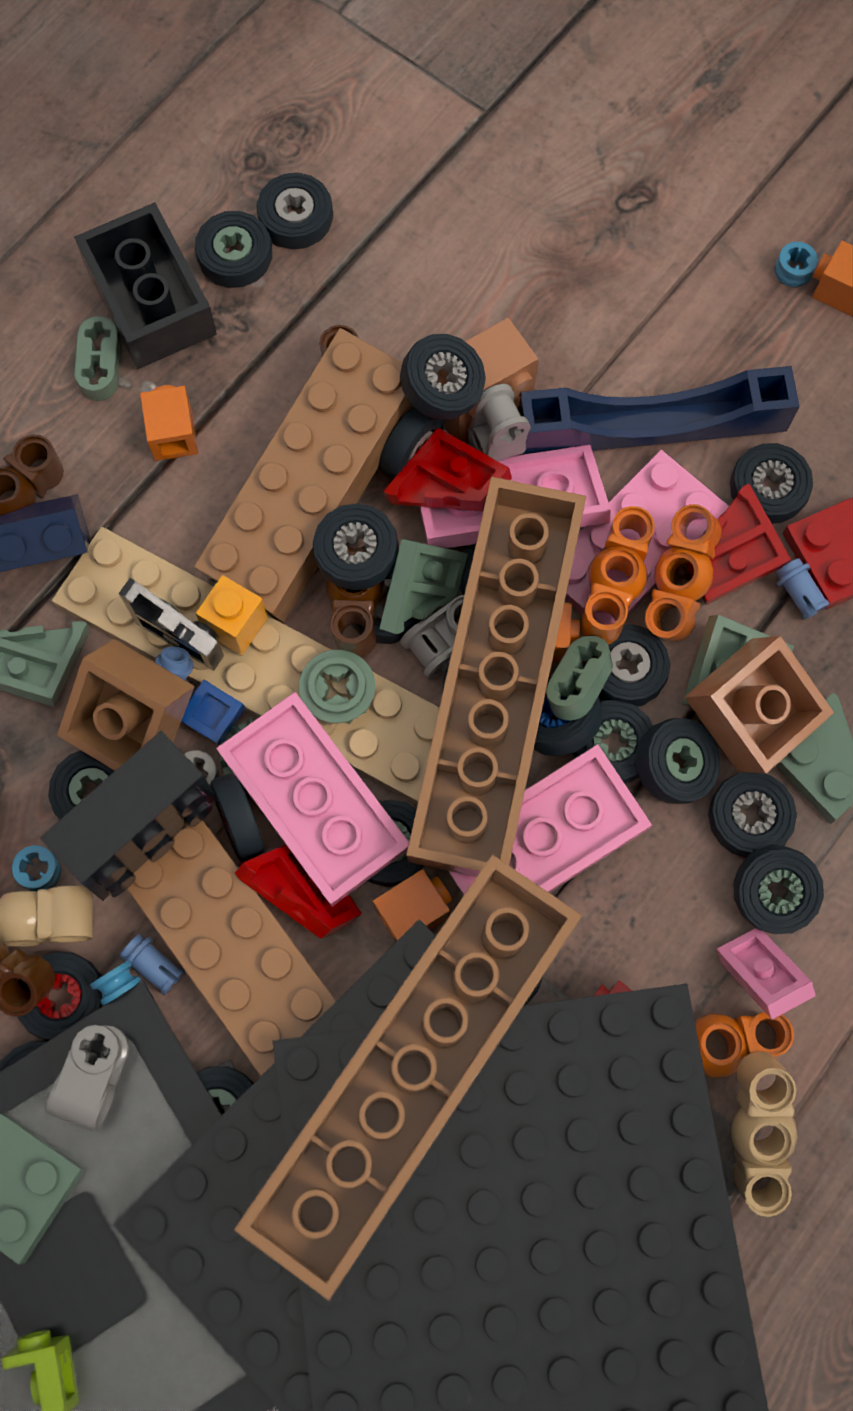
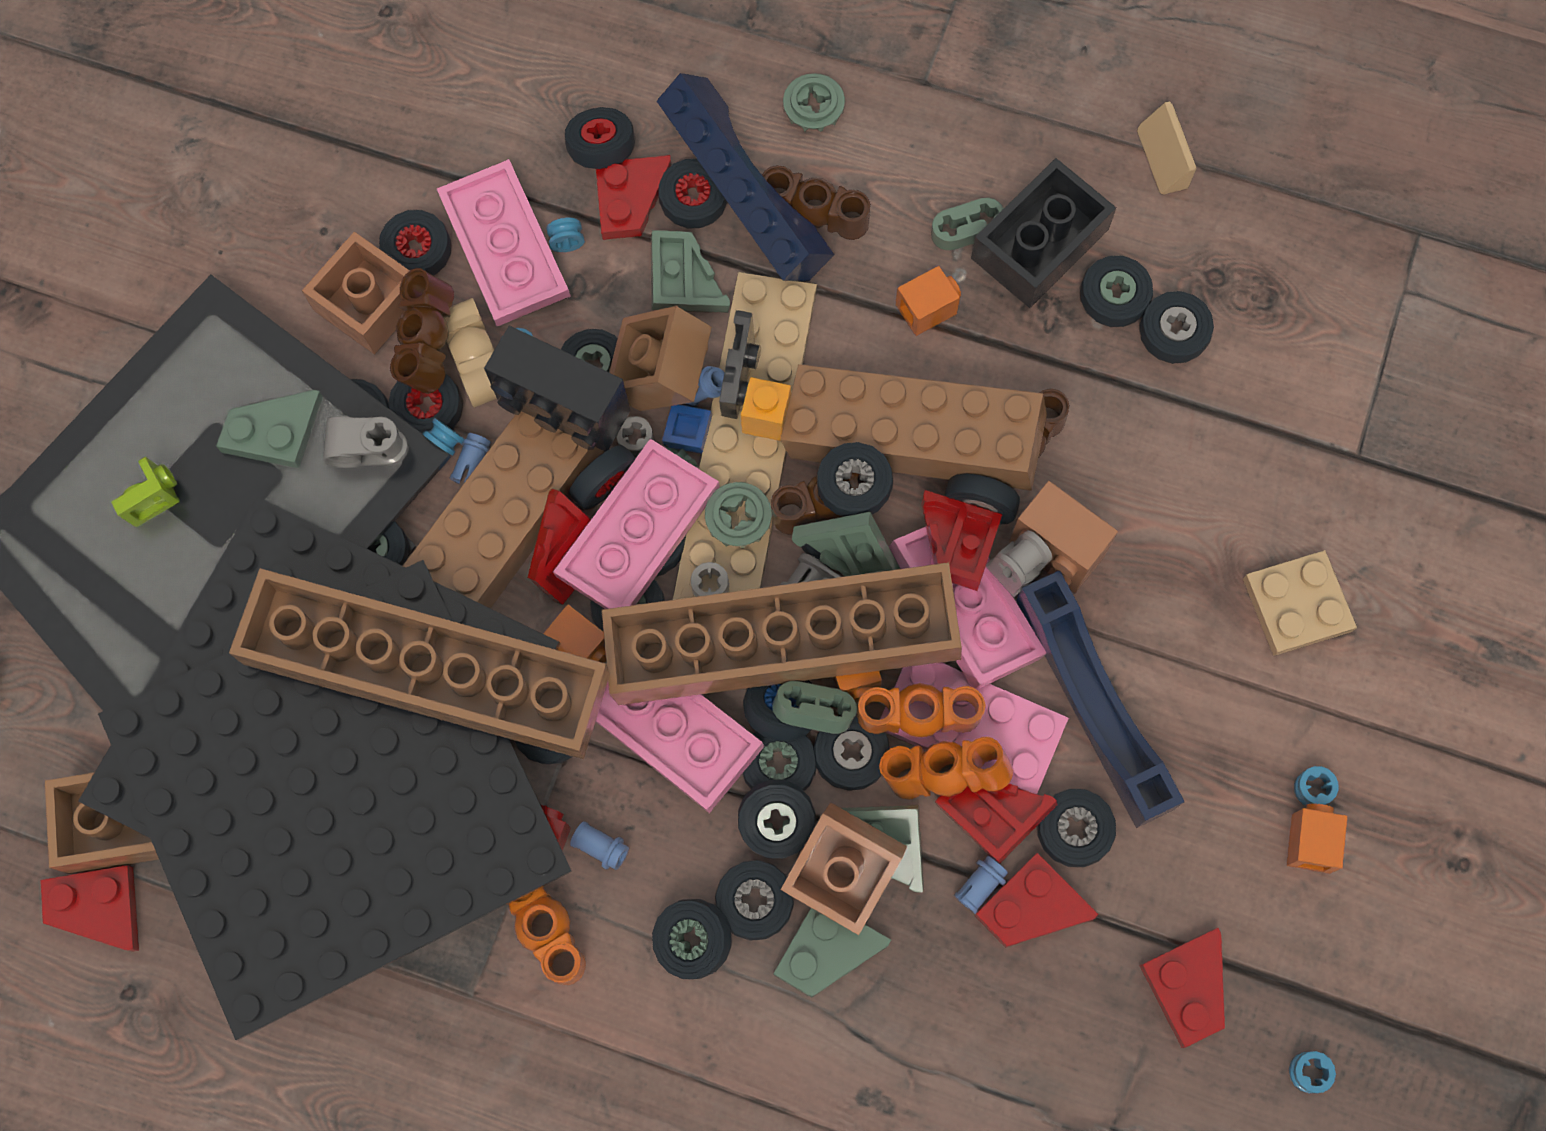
camera: 75 degrees right, 0 degrees up
(103, 146) = (1167, 150): none -> tan slope
(407, 728) = (705, 569): none -> light grey bush
(464, 376) = (1042, 509): black bush -> none
(614, 212) = (1299, 603): none -> tan plate
(647, 956) = (600, 846): none -> medium blue pin
(766, 973) = (611, 944): bright pink plate -> none
(770, 1155) = (458, 981): tan piece -> none

